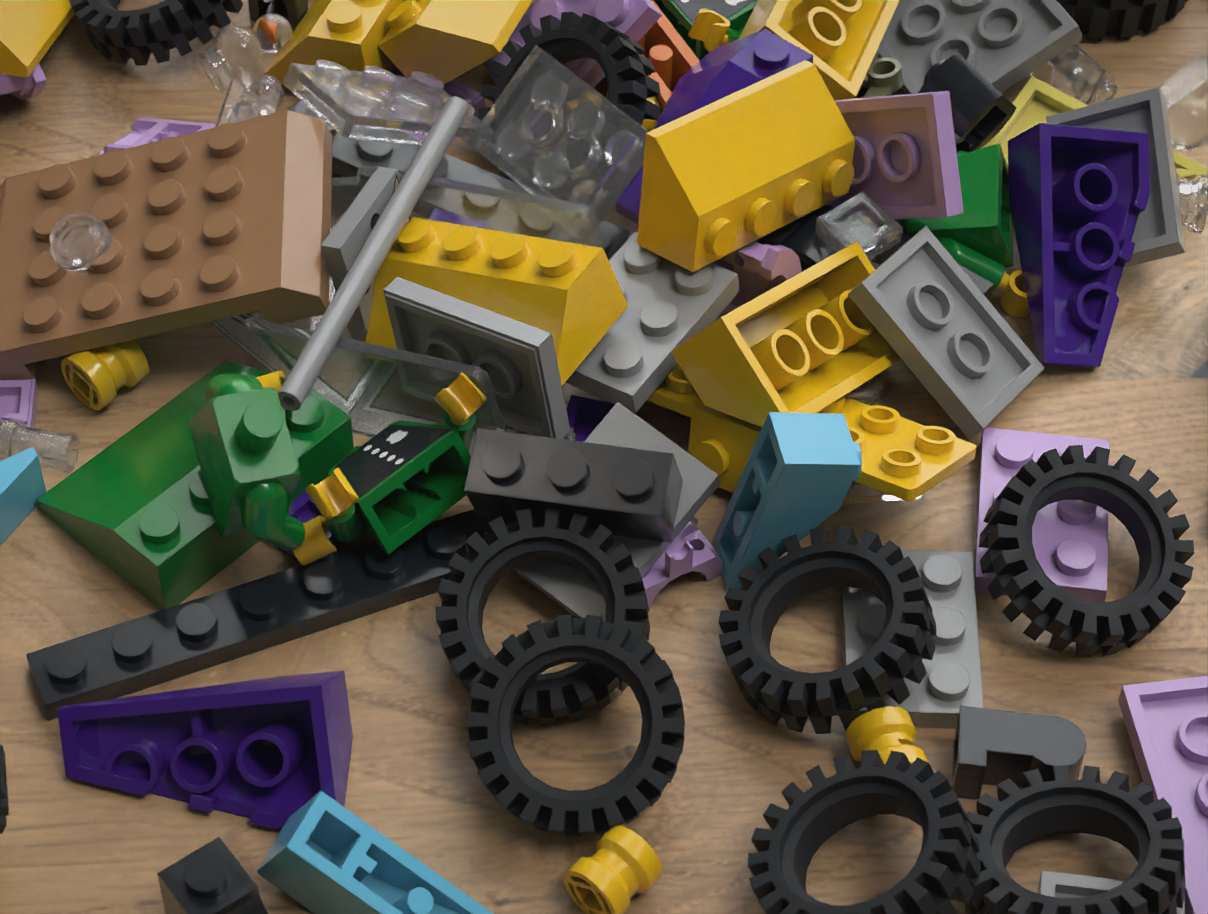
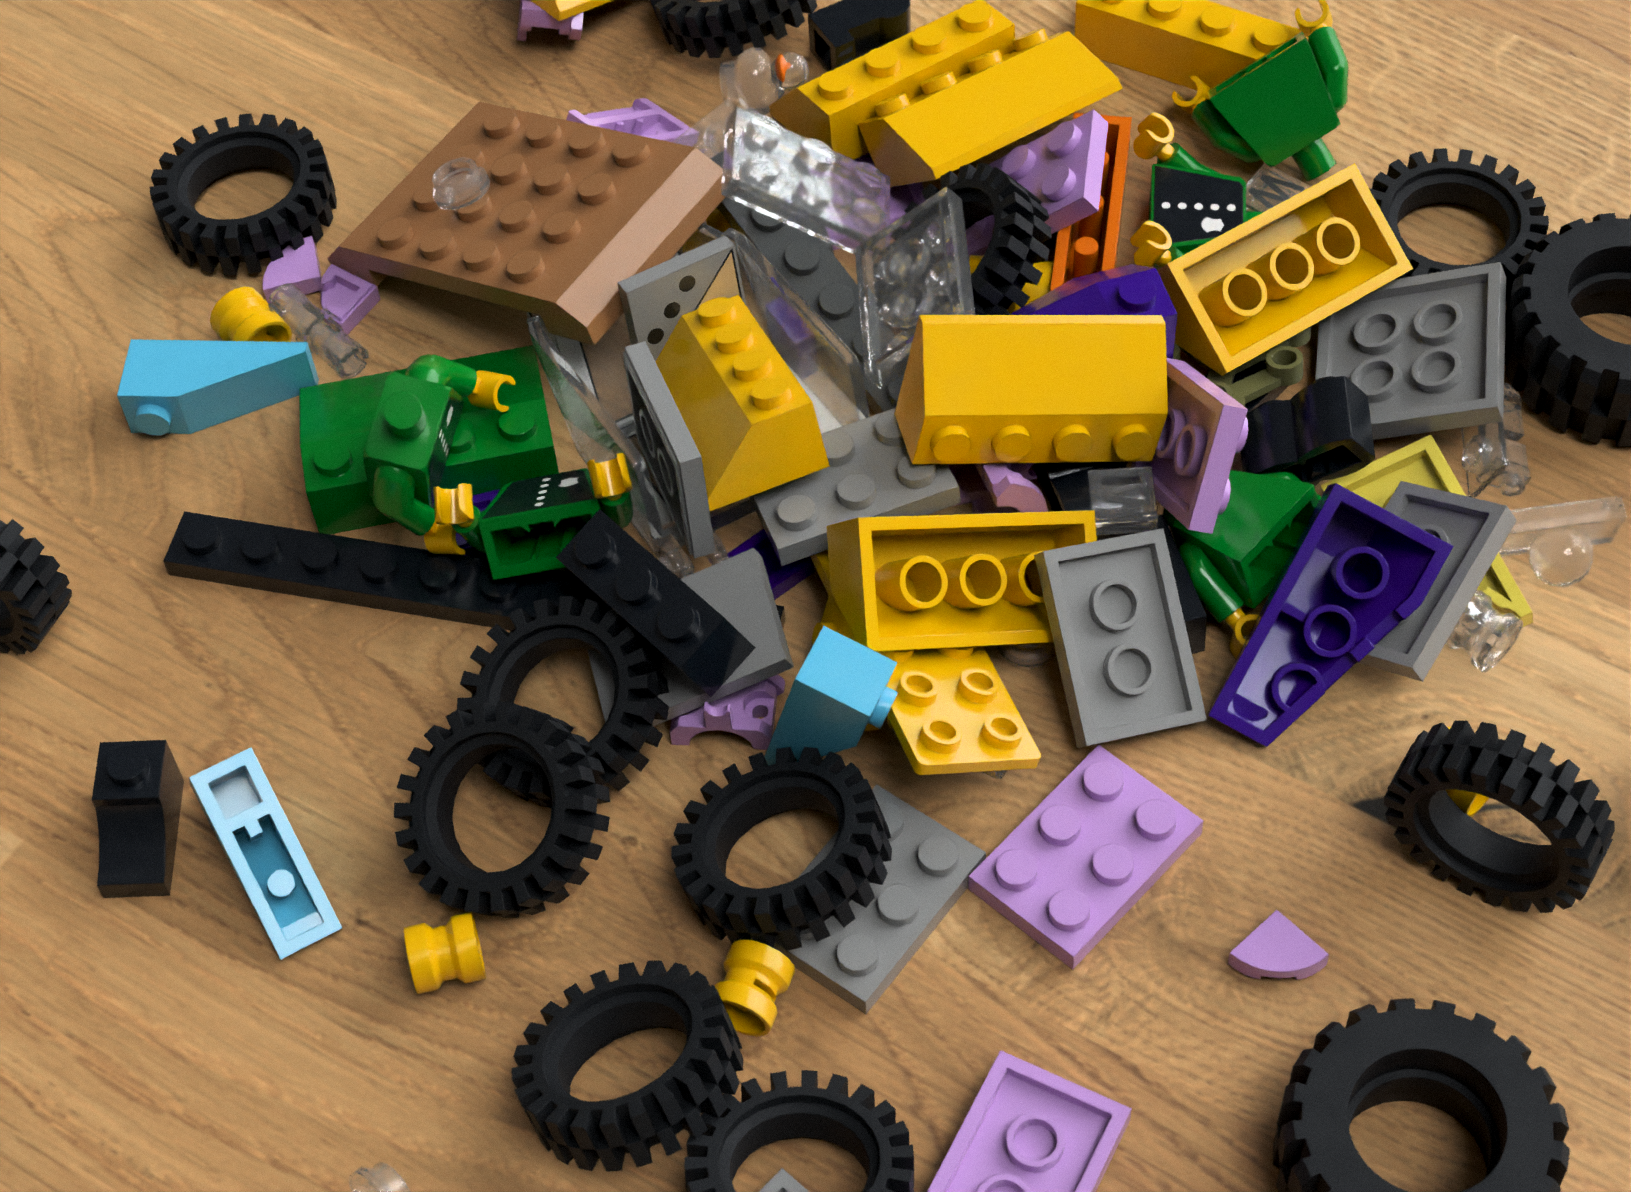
camera: 40 degrees right, 5 degrees up
(101, 371) = (427, 307): yellow wheel -> none
(220, 747) = (268, 675): dark purple wedge -> none
(372, 255) = (661, 309): light grey piece -> none
(1005, 744) = (855, 1046): leg -> none
(1130, 501) = (1087, 829): black tyre -> none

